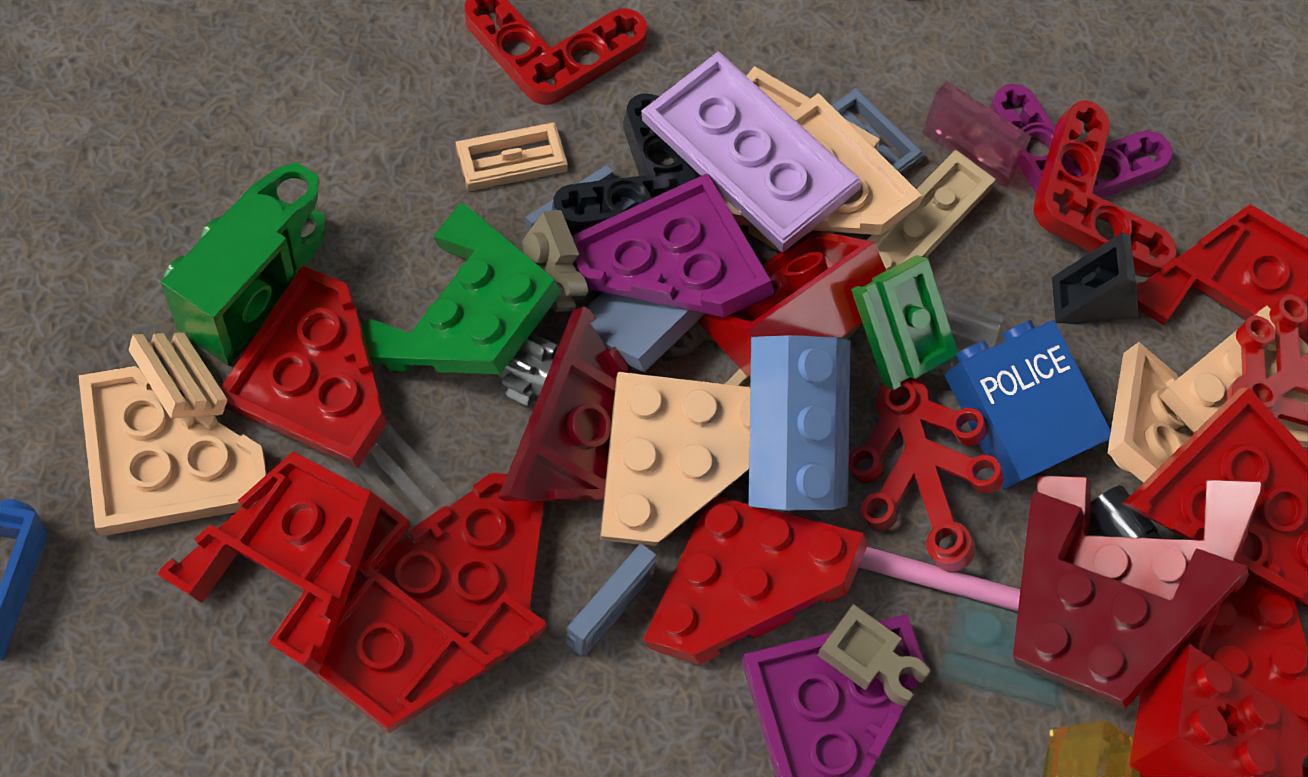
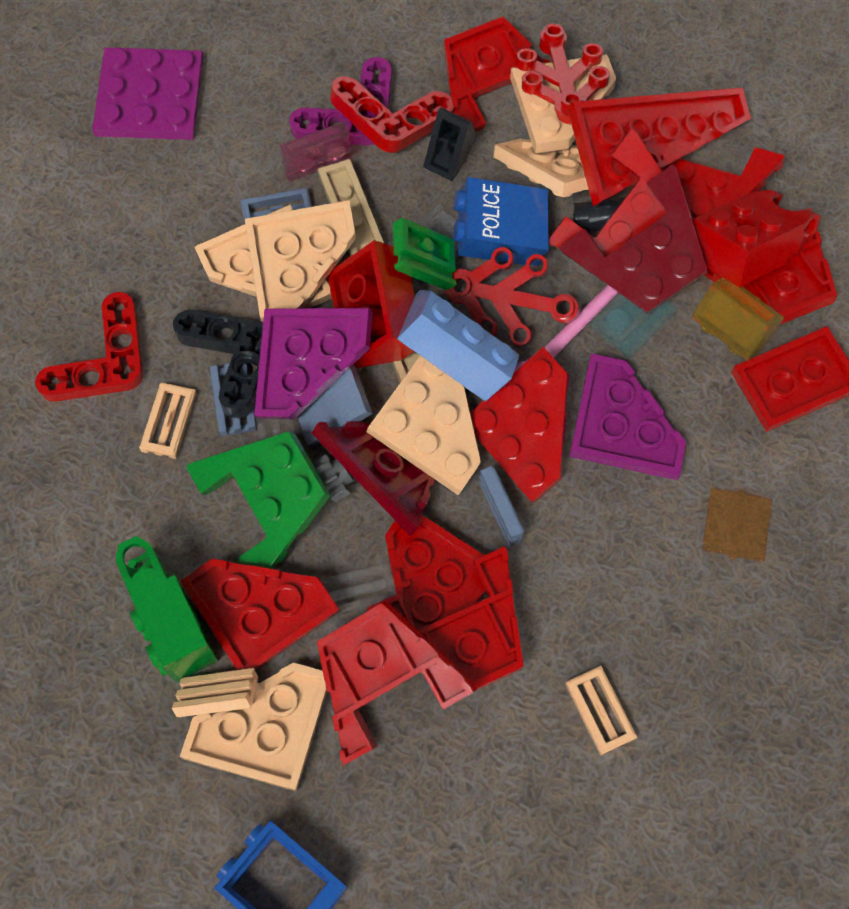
camera: 55 degrees left, 5 degrees up
(554, 251) = (262, 423): dark tan plate -> none
(751, 151) = (260, 276): lavender tile -> none
(864, 651) = (607, 385): dark tan plate -> none

